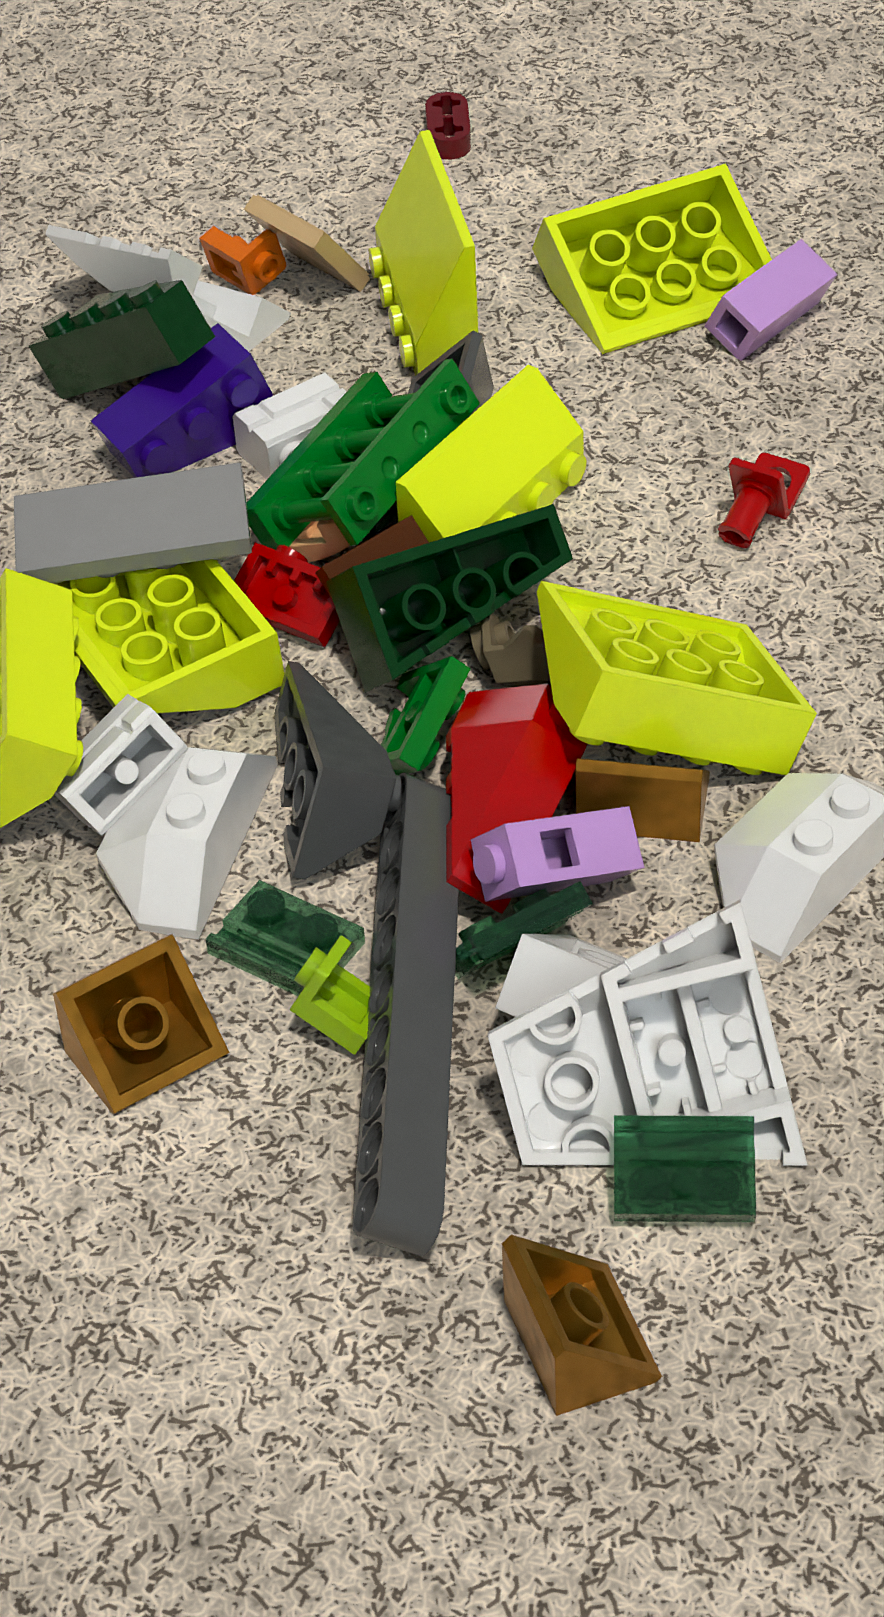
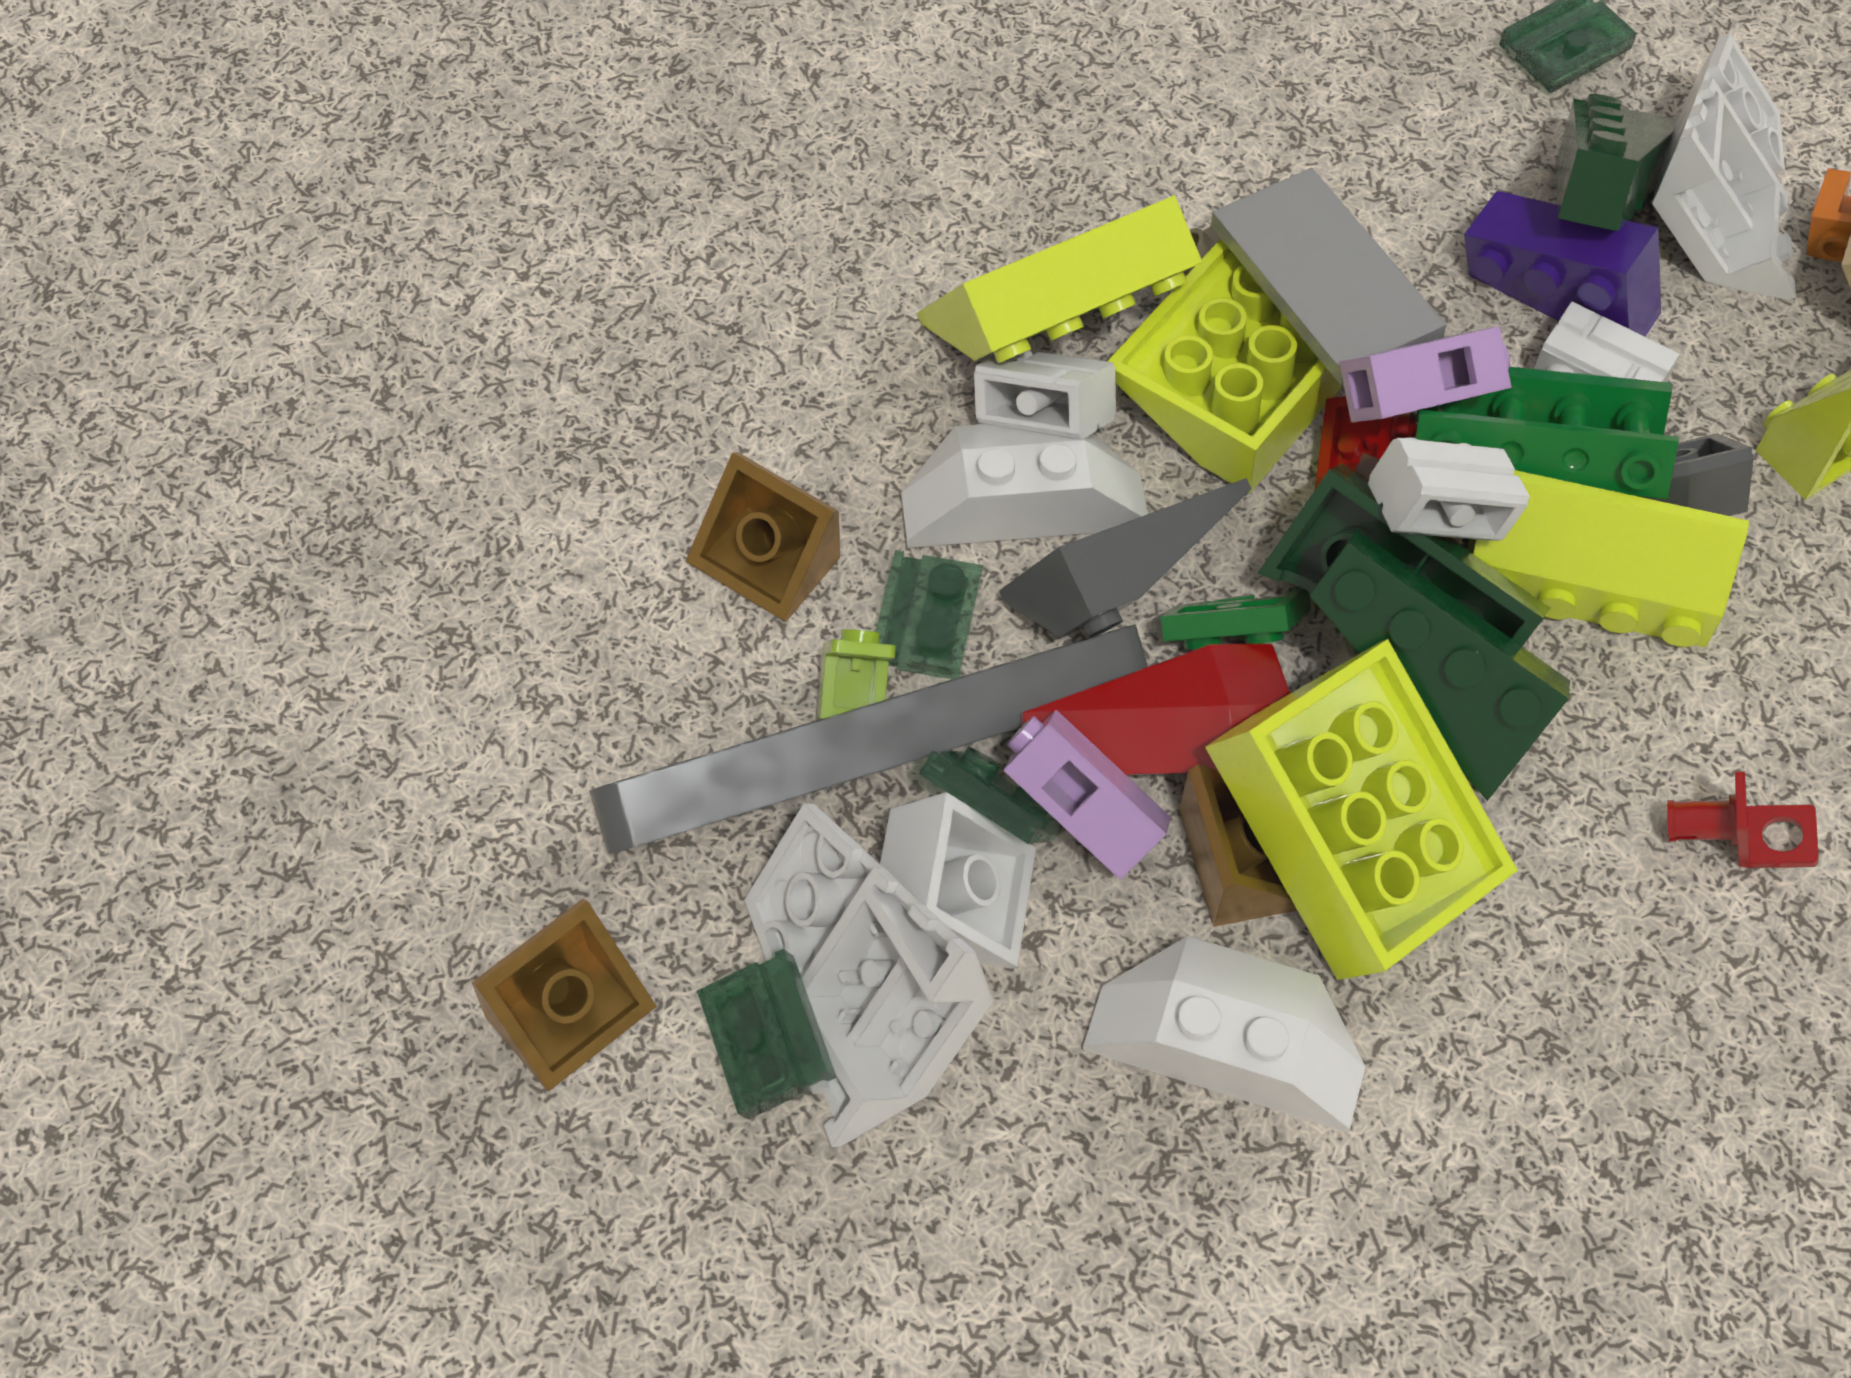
camera: 65 degrees right, 15 degrees up
(285, 489) = (1425, 374): none -> lavender brick
(412, 505) = (1448, 489): none -> white brick
(500, 584) = (1473, 678): none -> dark green wedge

